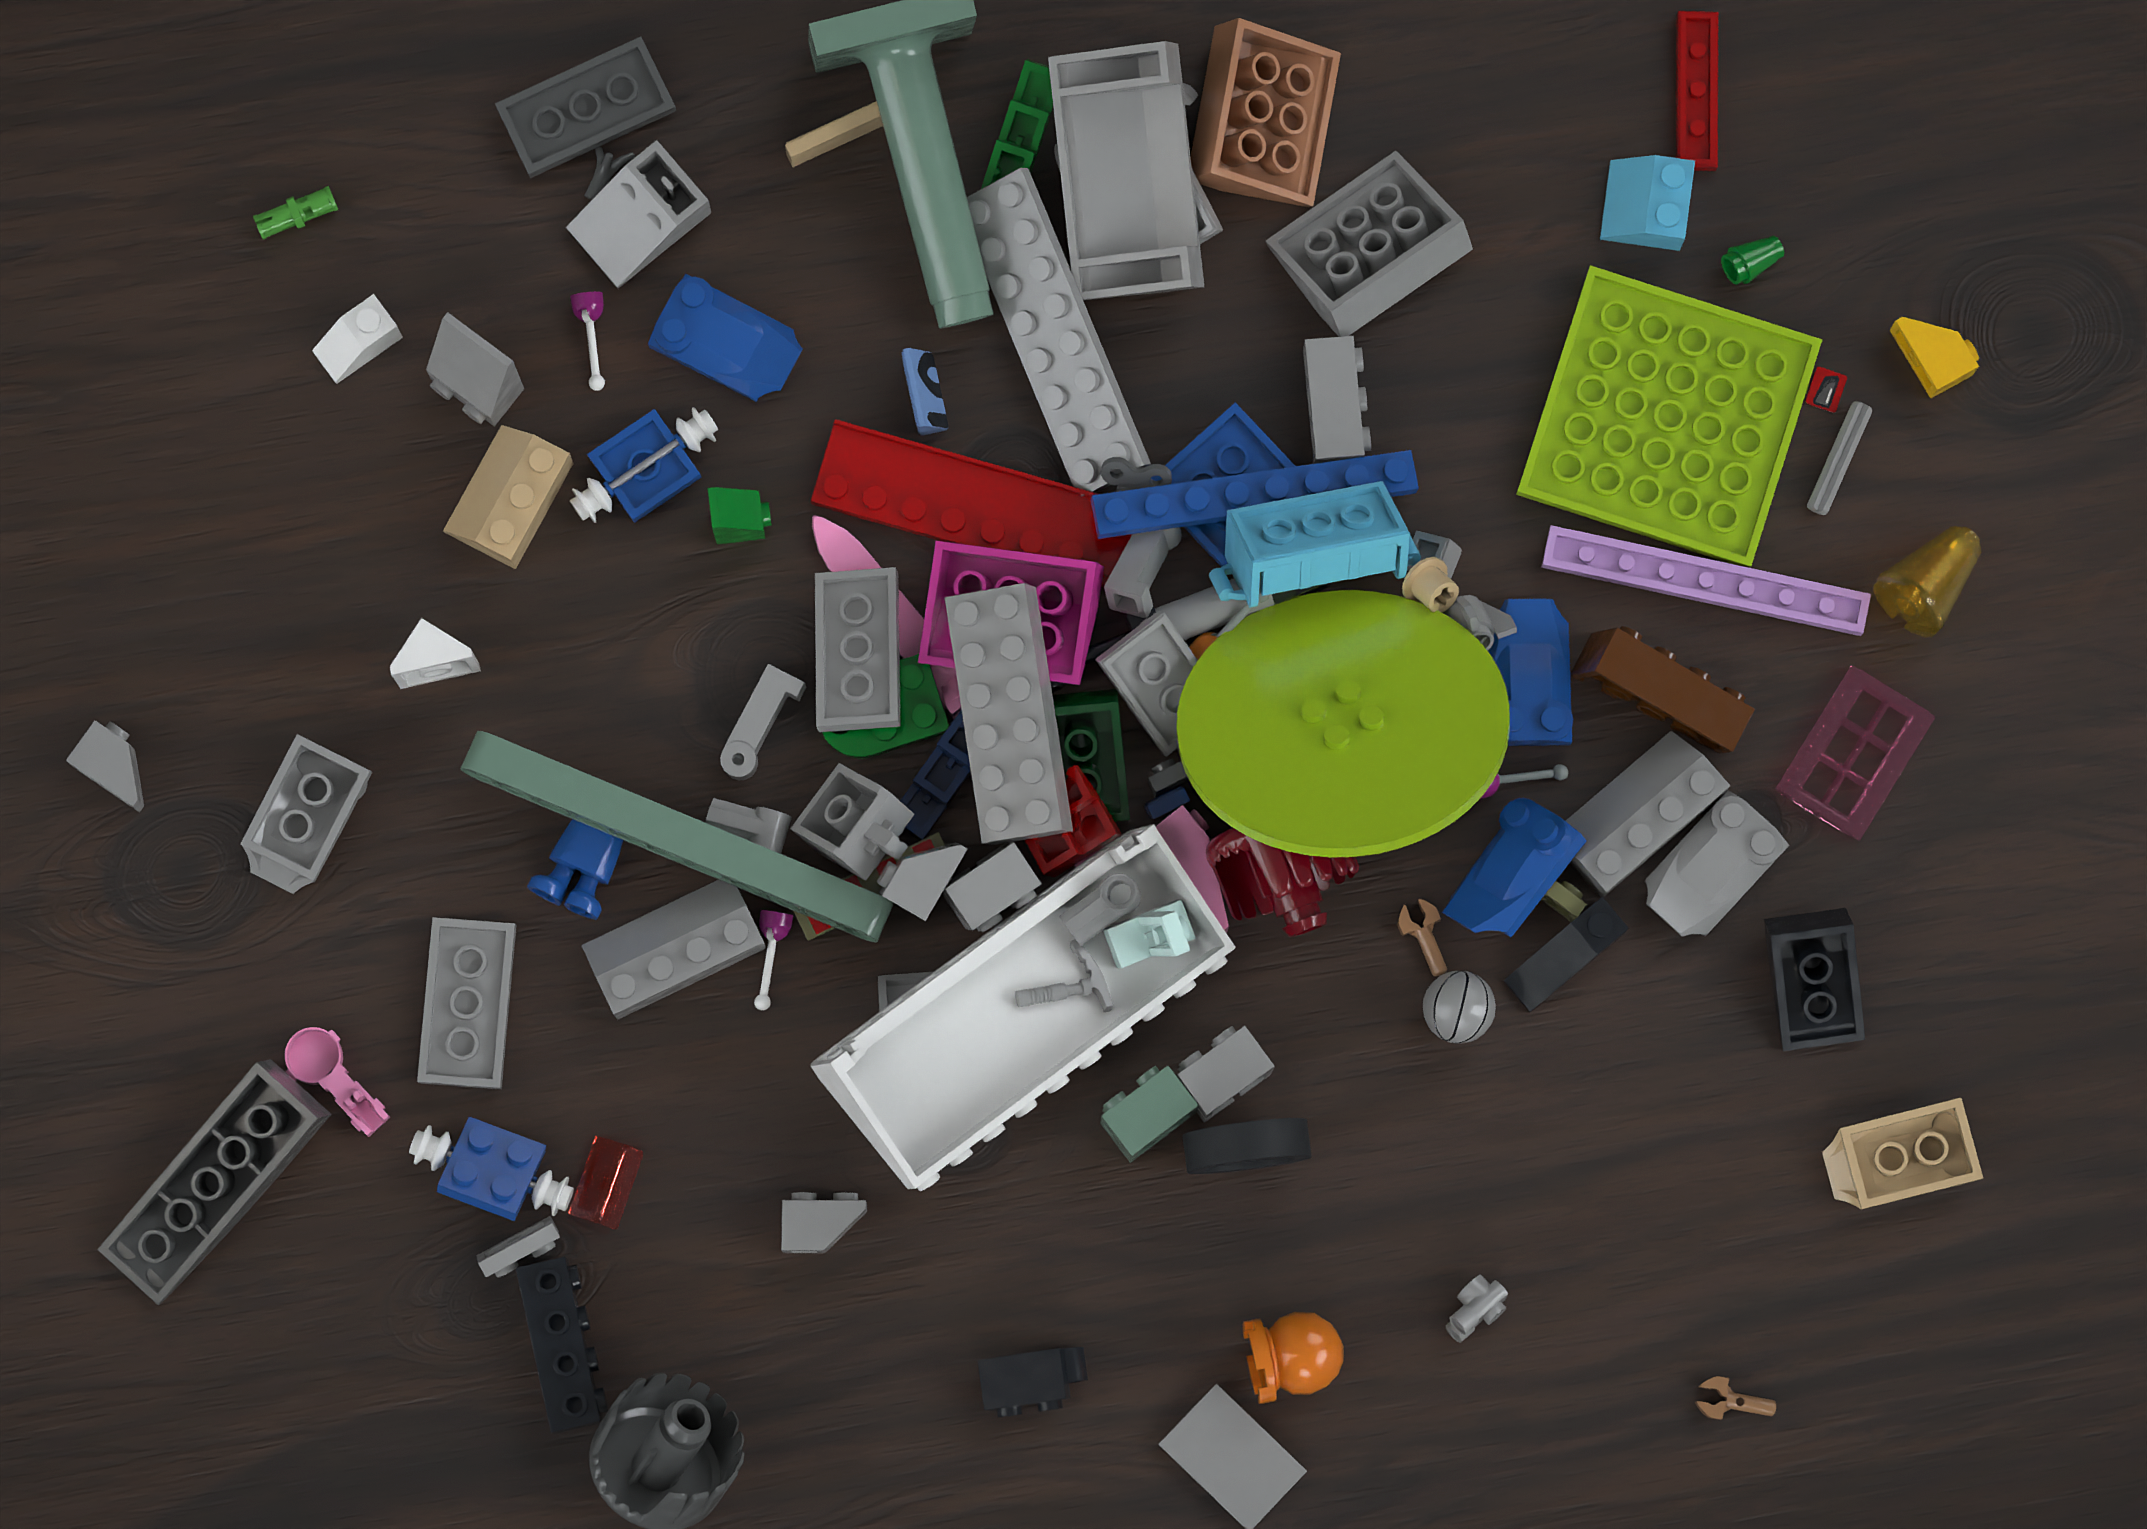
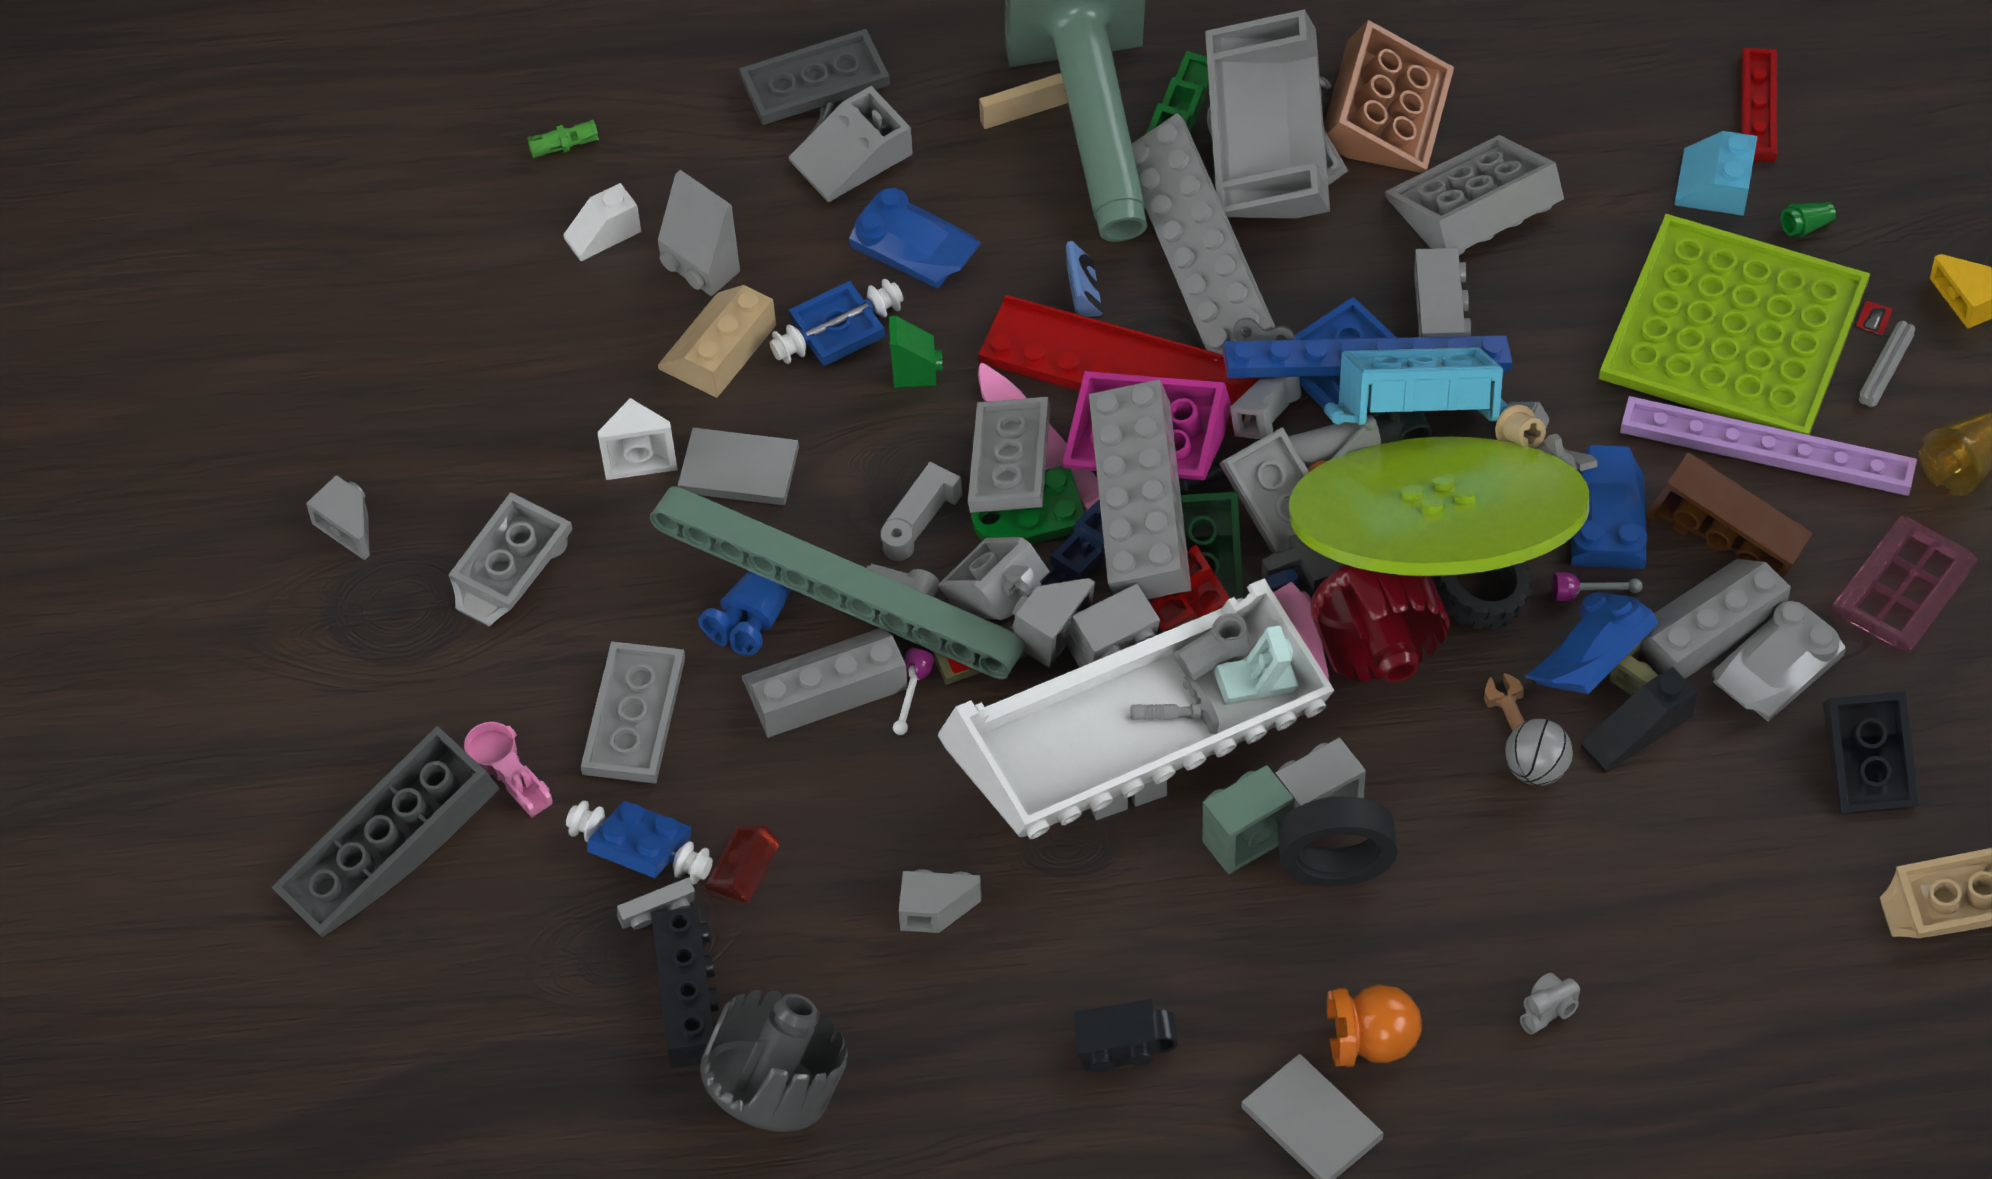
camera: 10 degrees right, 25 degrees down
(550, 666) = (739, 466): none -> light grey tile
(588, 308) = (801, 211): hinge -> none
(1733, 1401) = (1793, 1098): medium nougat bar -> none

